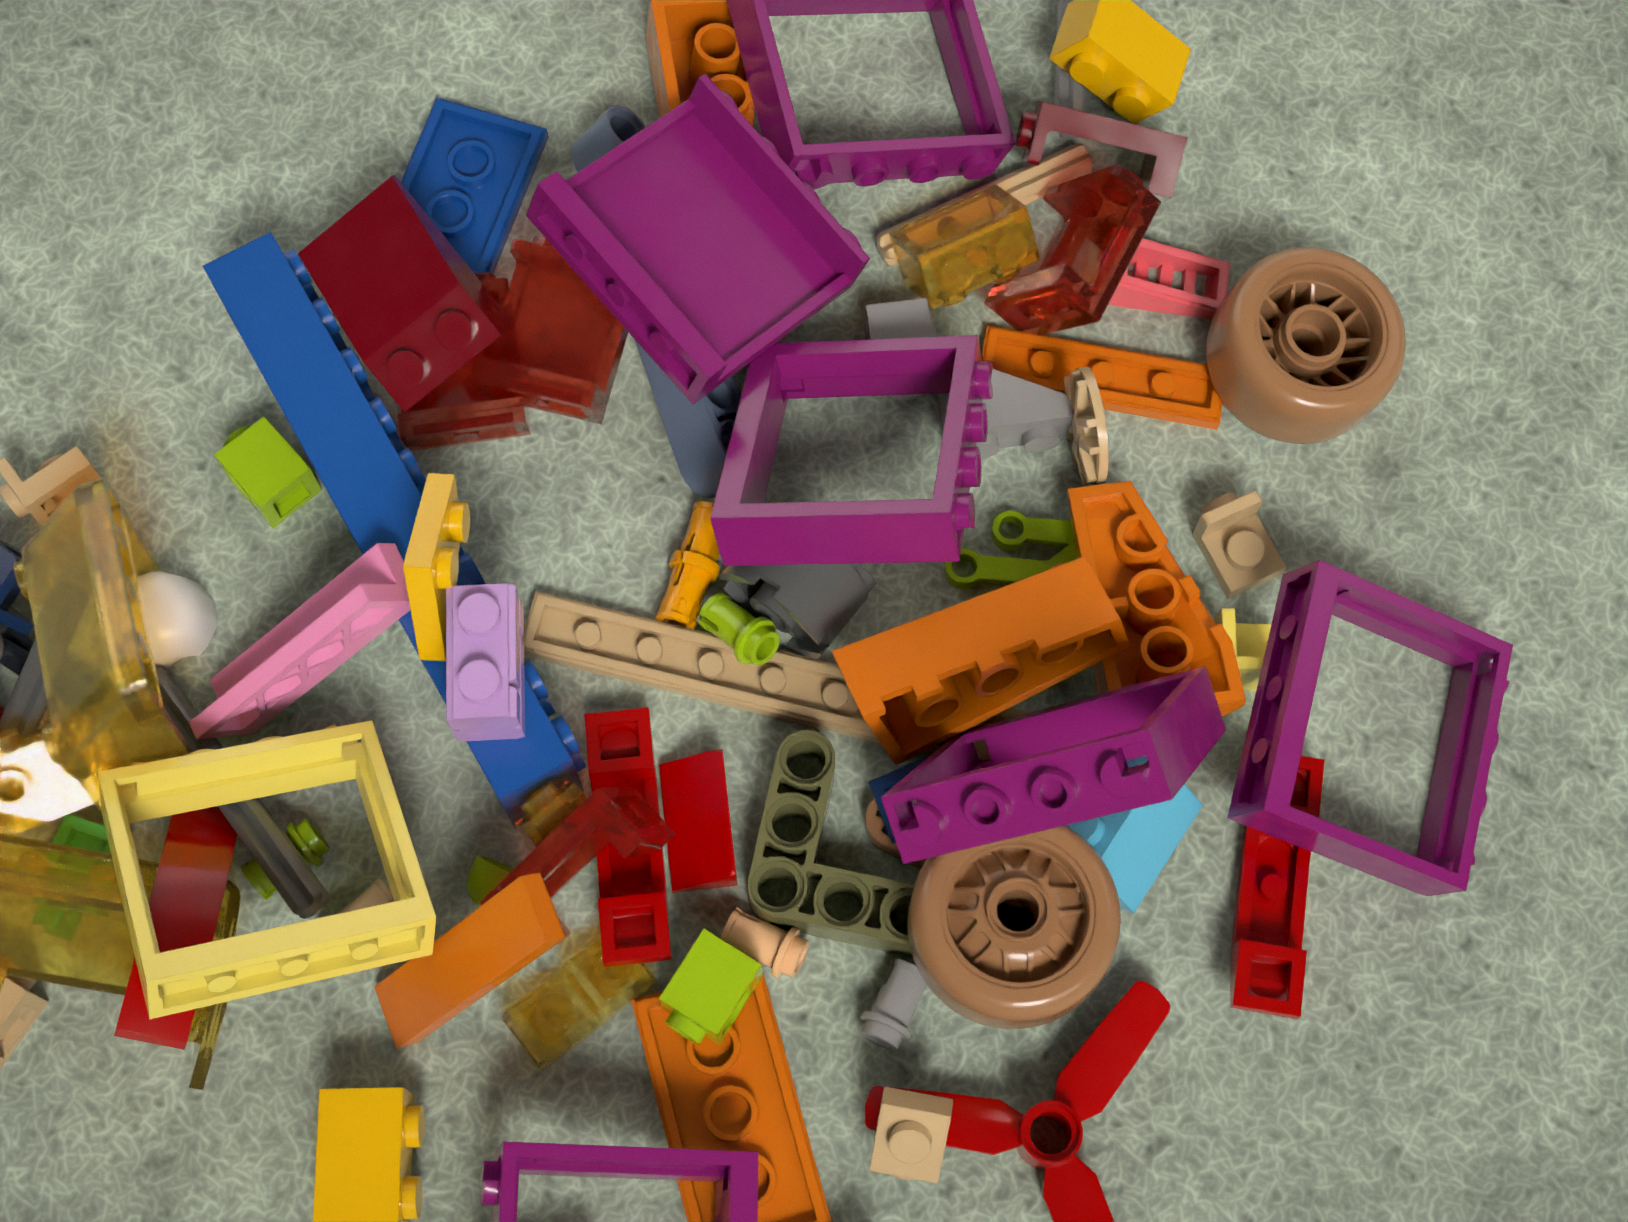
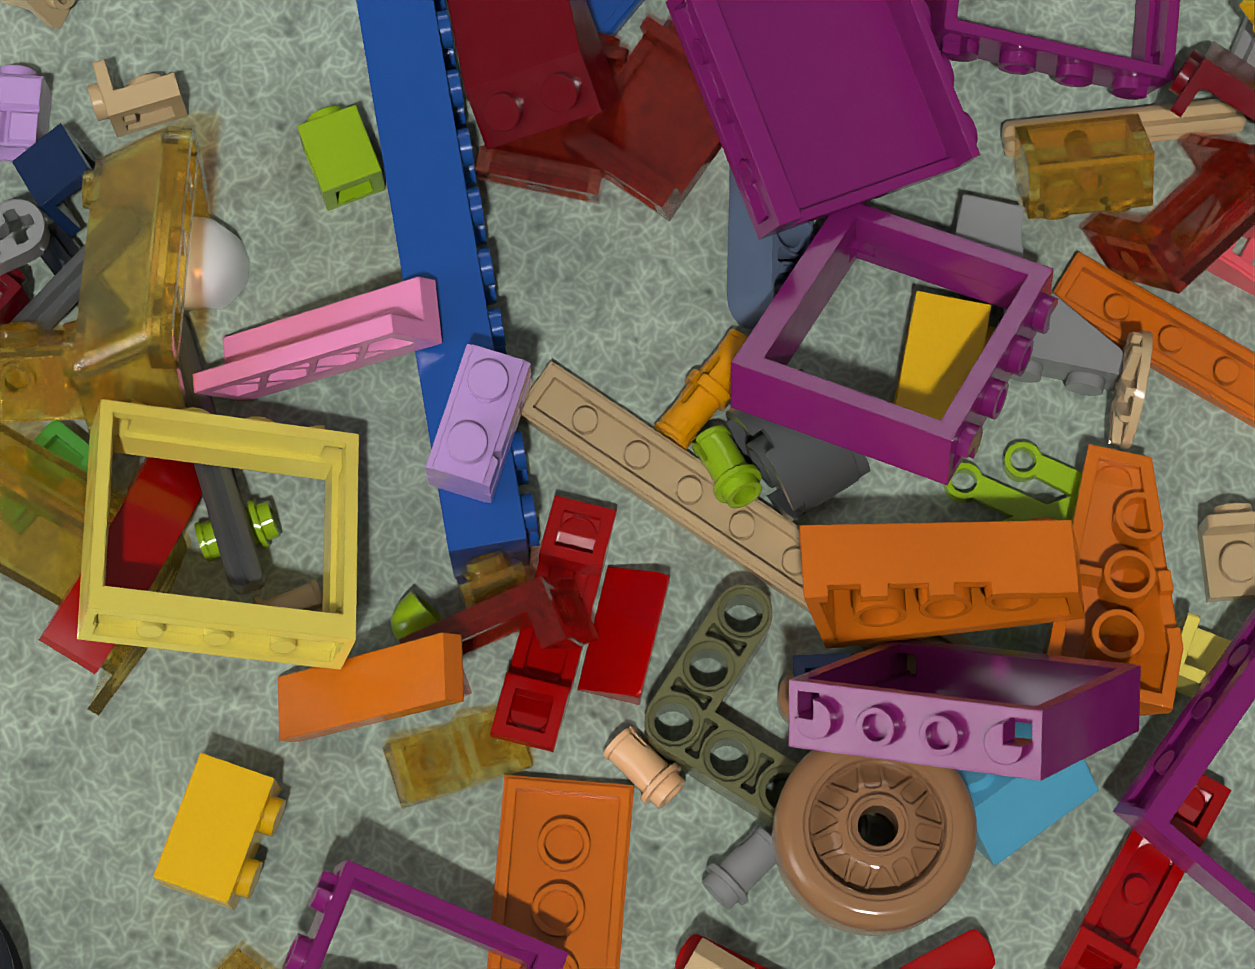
camera: 20 degrees right, 5 degrees up
(434, 561) = (465, 312): yellow wing -> none
(709, 989) = (578, 792): lime brick -> none
(899, 448) = (940, 351): none -> yellow brick

